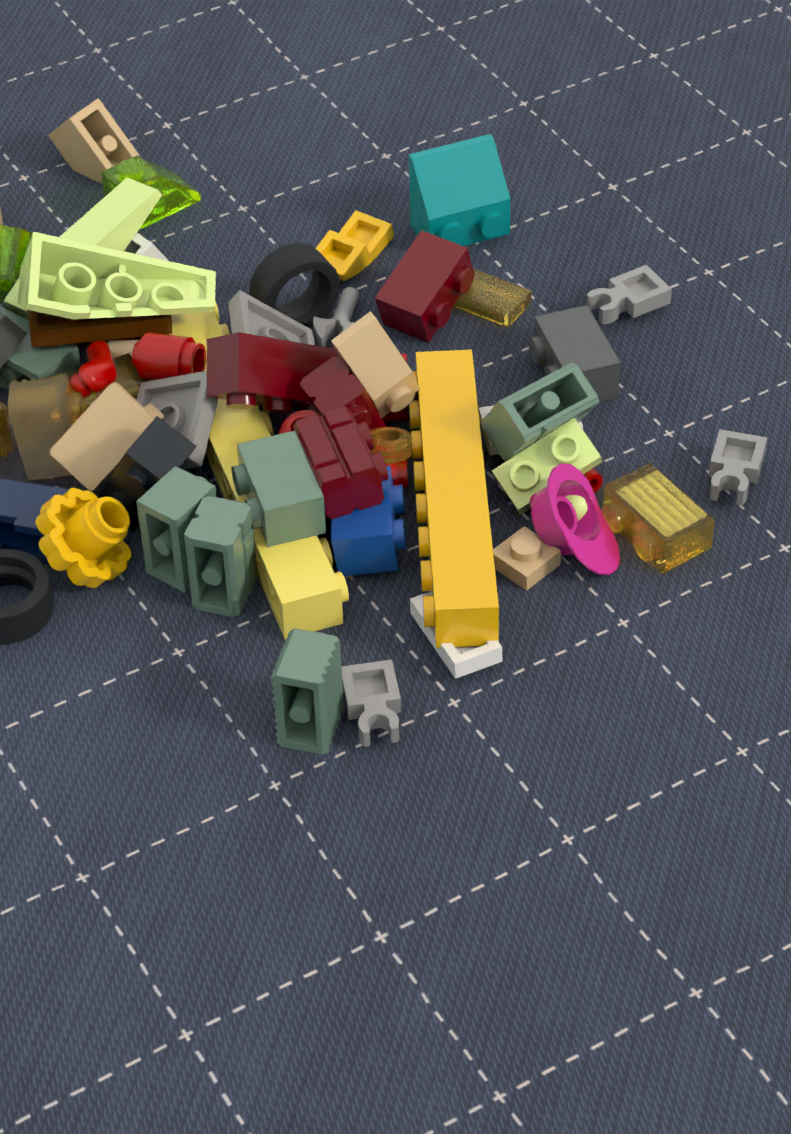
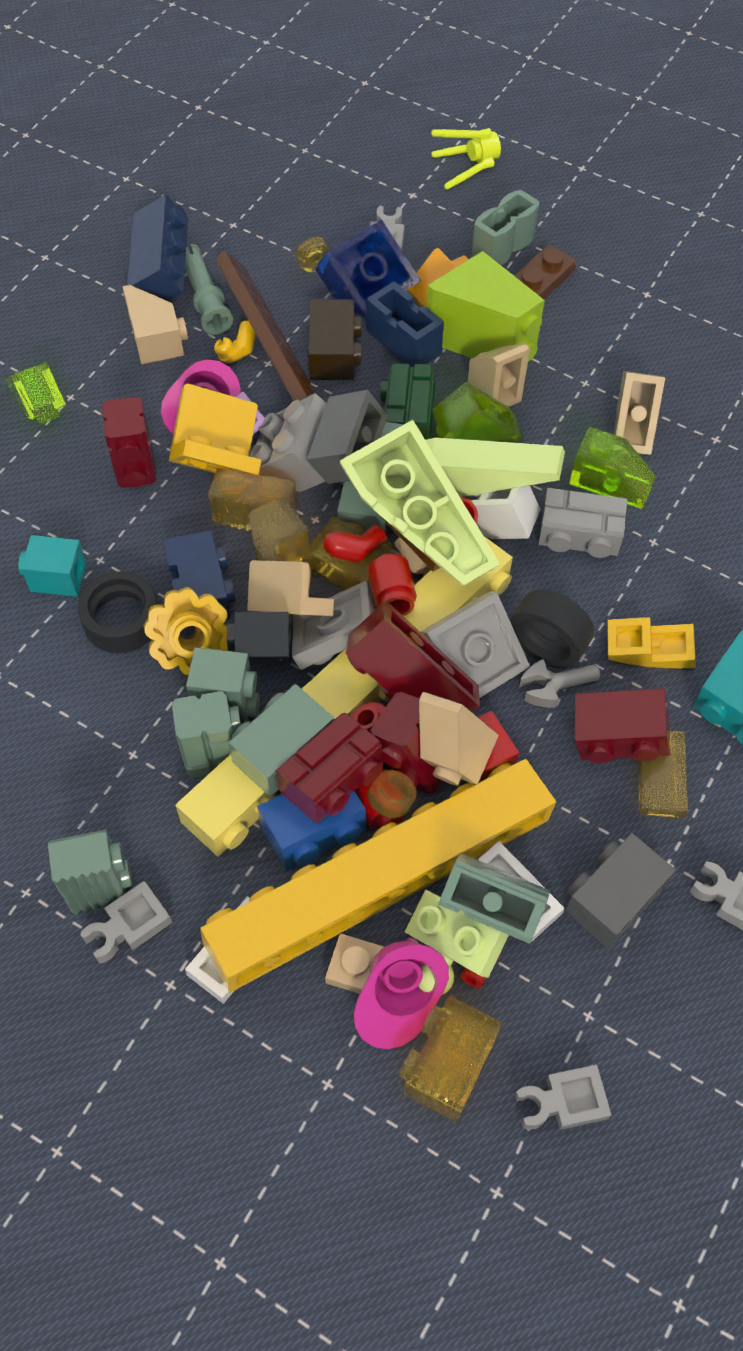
camera: 60 degrees right, 15 degrees up
(194, 228) = (582, 522): none -> light grey brick

